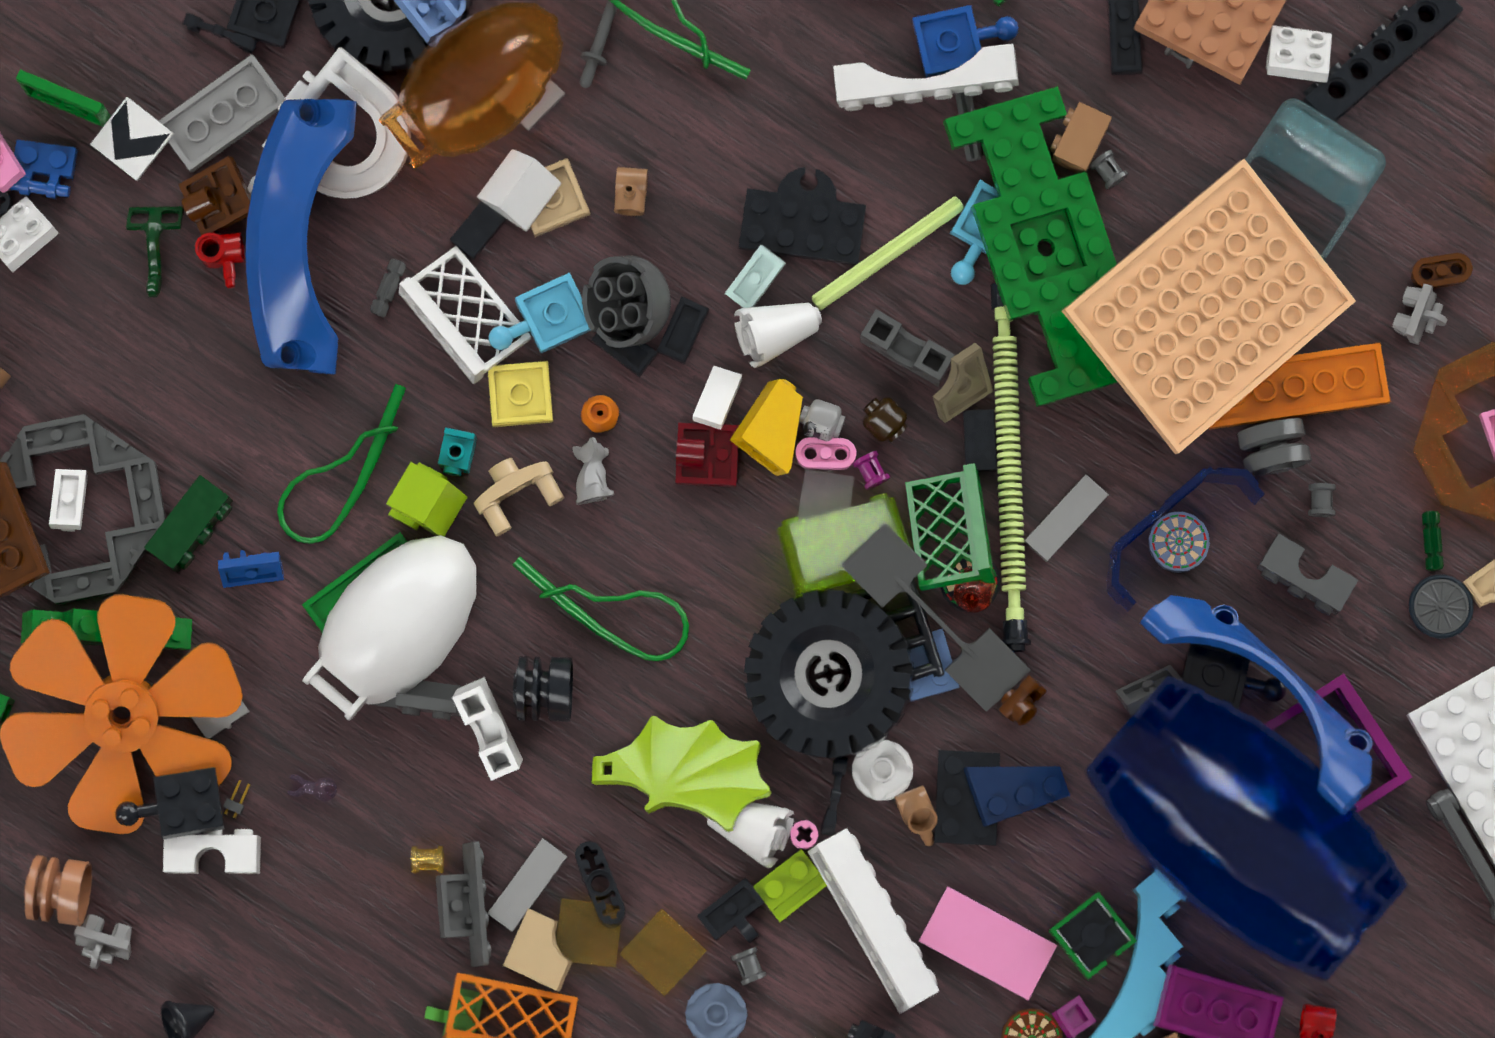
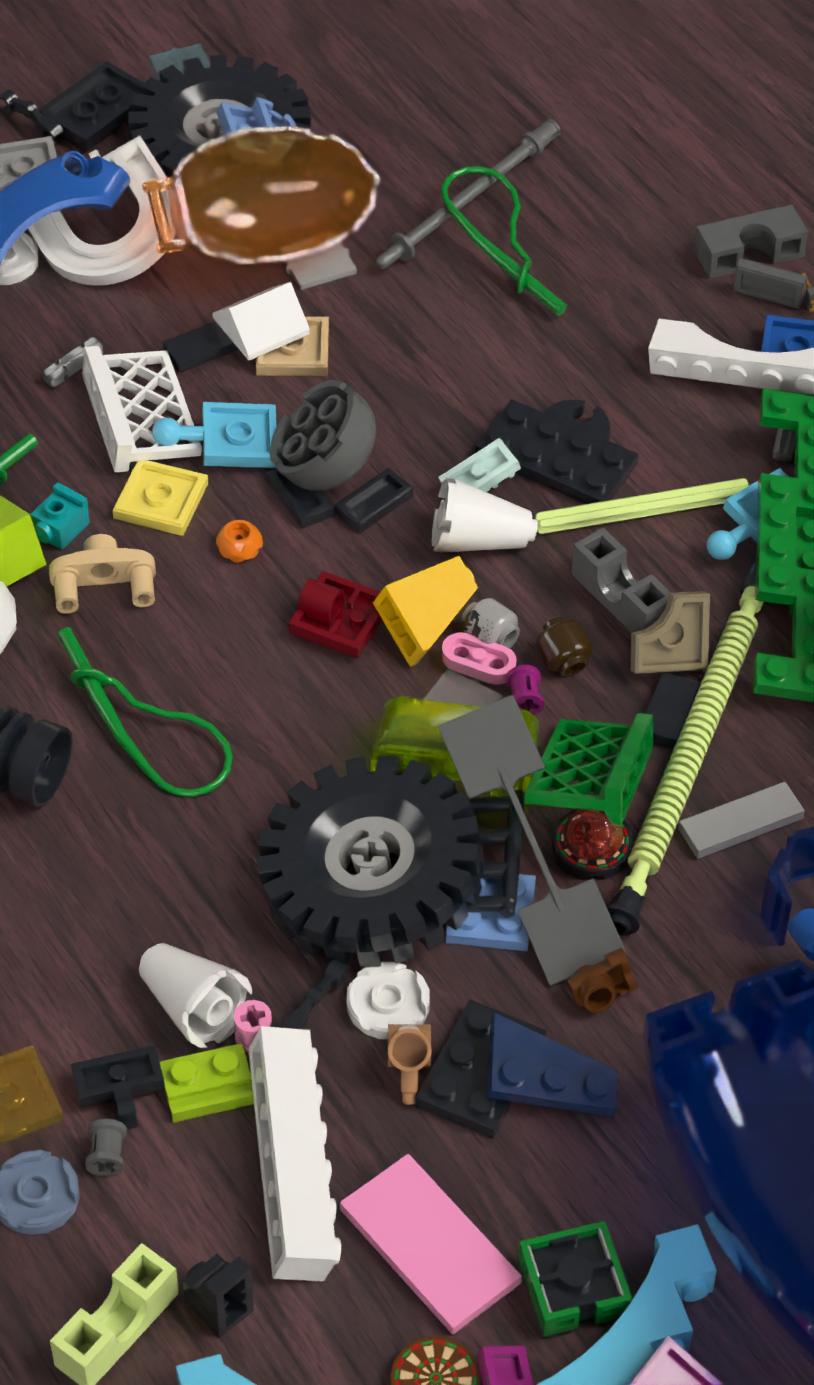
camera: 20 degrees right, 30 degrees down
(591, 481) = (191, 592): light grey animal -> none
(630, 191) = (380, 361): medium nougat piece -> none
(688, 770) = (144, 901): lime animal -> none
(717, 397) = (379, 564): white tile -> none

